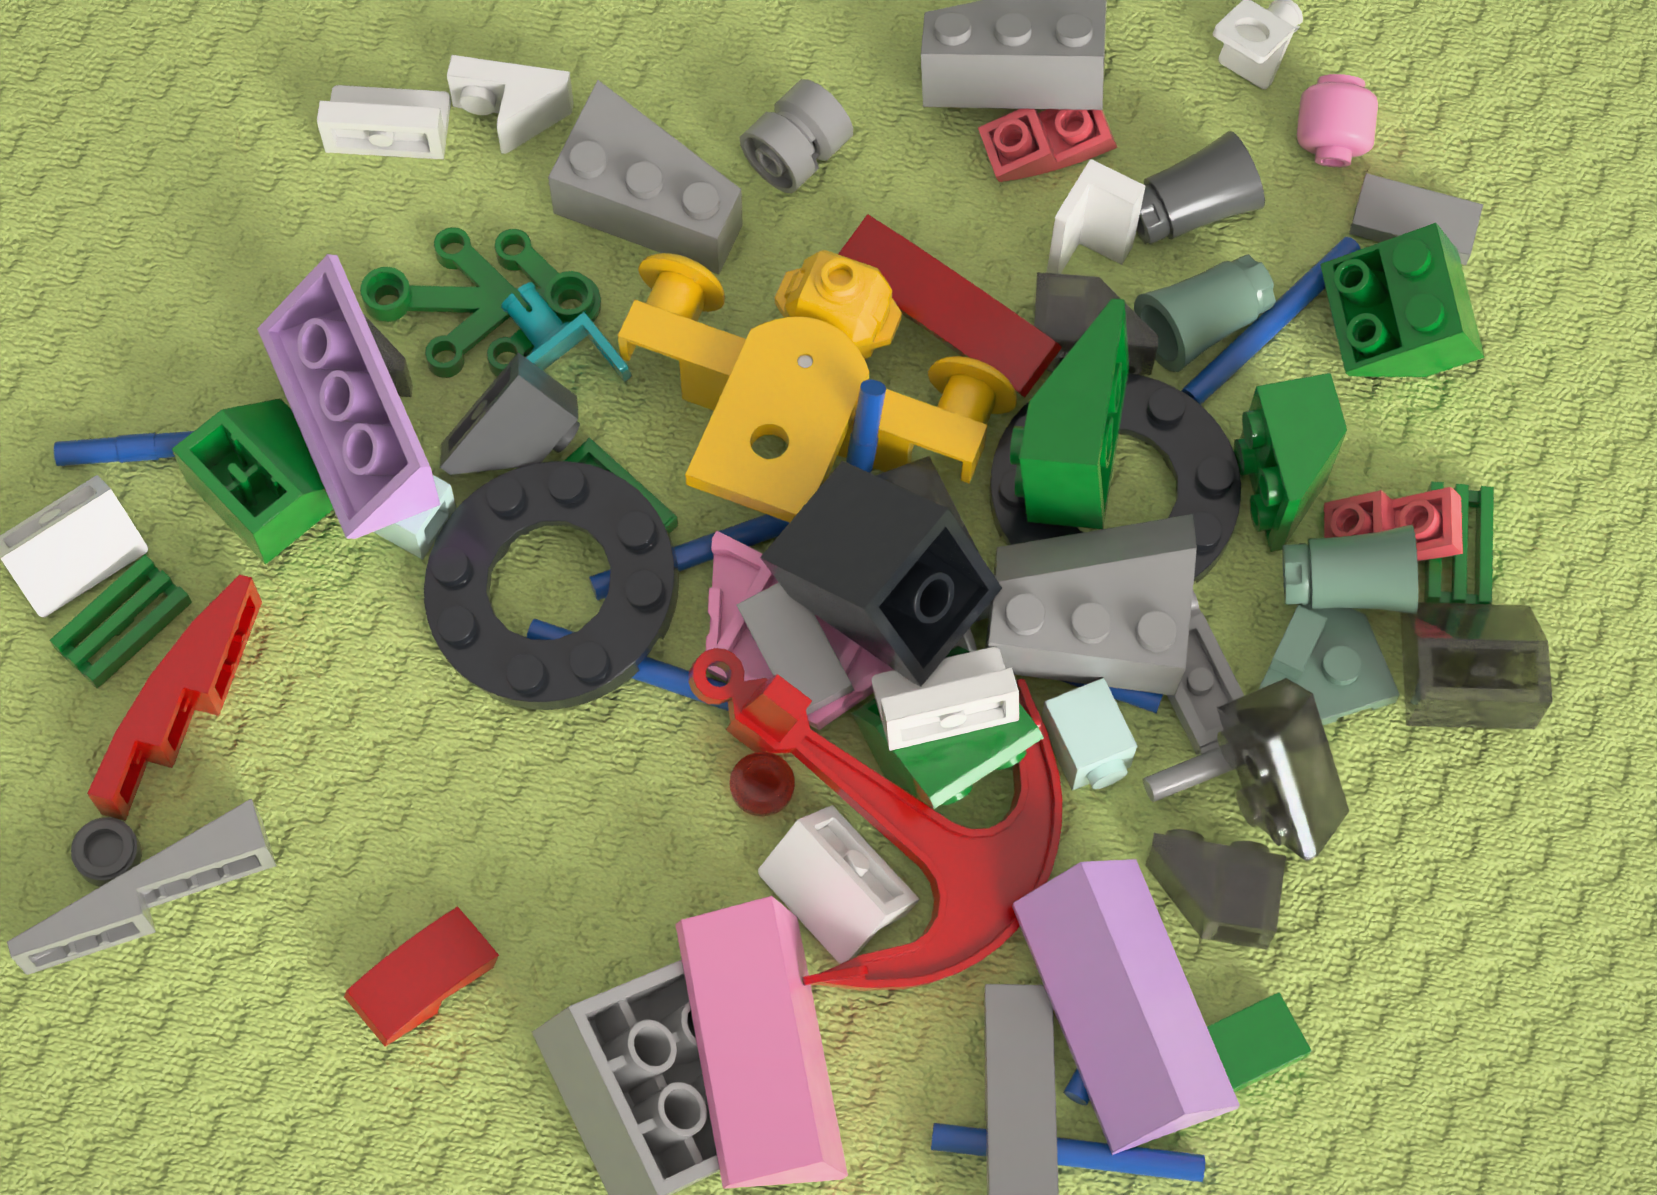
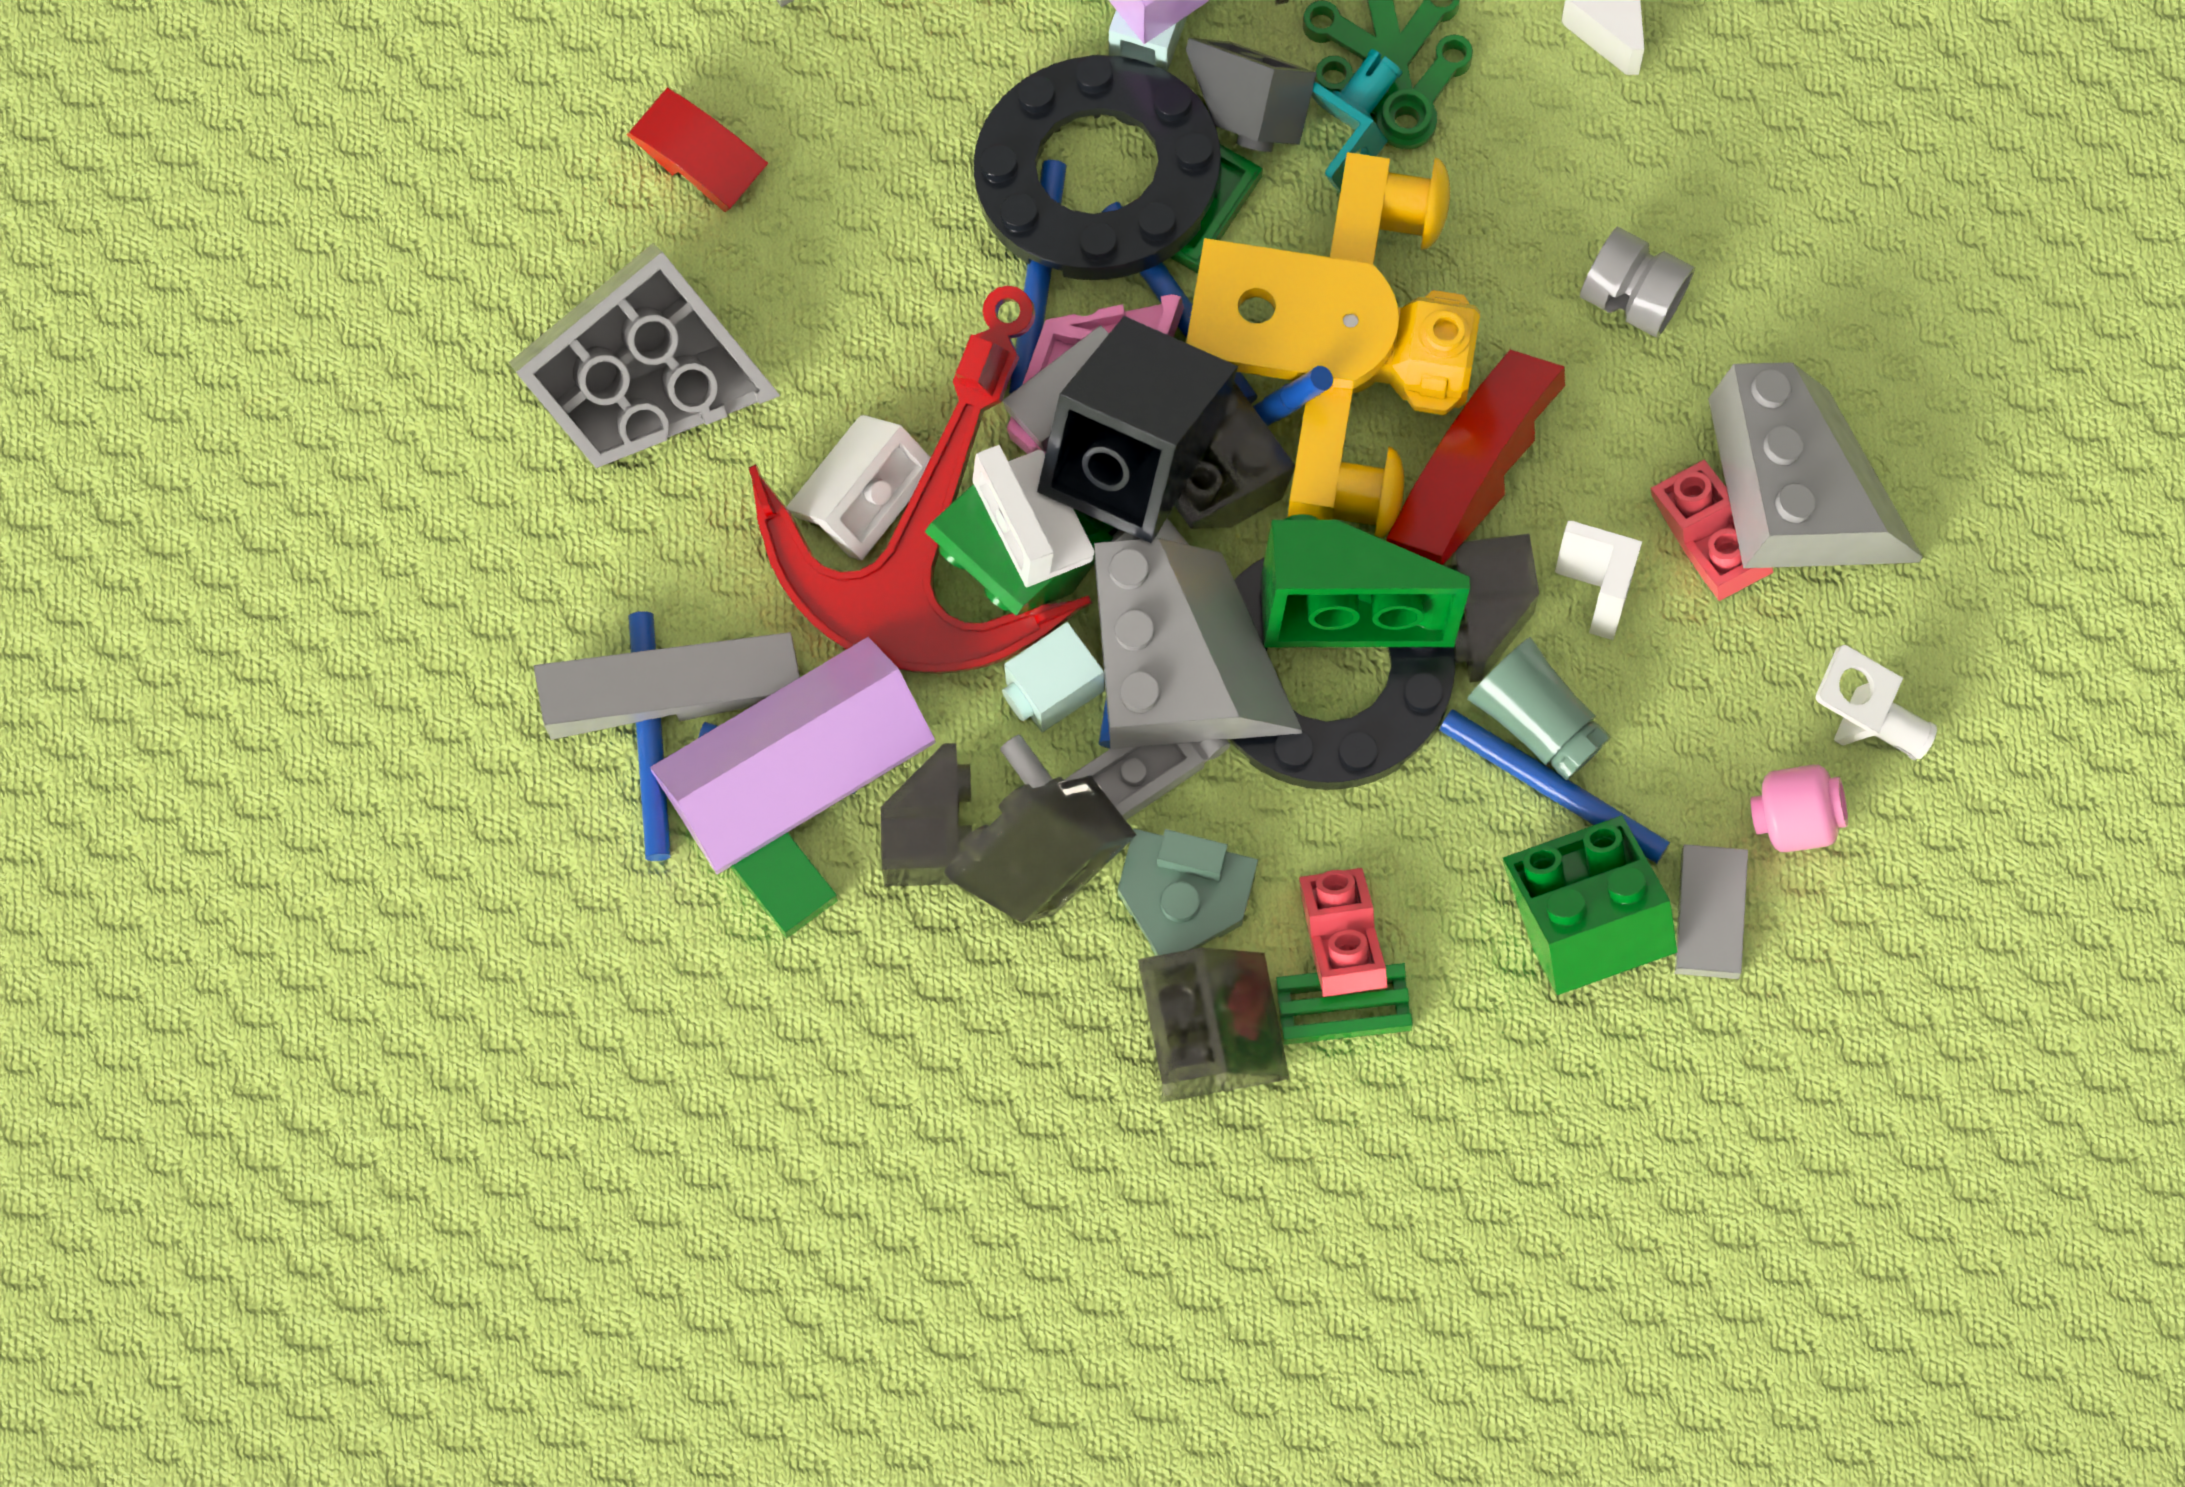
camera: 80 degrees right, 5 degrees up
(643, 184) = (1547, 145): light grey wedge -> none
(760, 1046) = (685, 445): bright pink slope -> none
(762, 784) = (936, 398): clear red plate -> none
(1200, 191) = (1675, 680): dark grey plant -> none
(1289, 451) = (1381, 810): green slope -> none
(1354, 571) = (1270, 889): sand green plant -> none

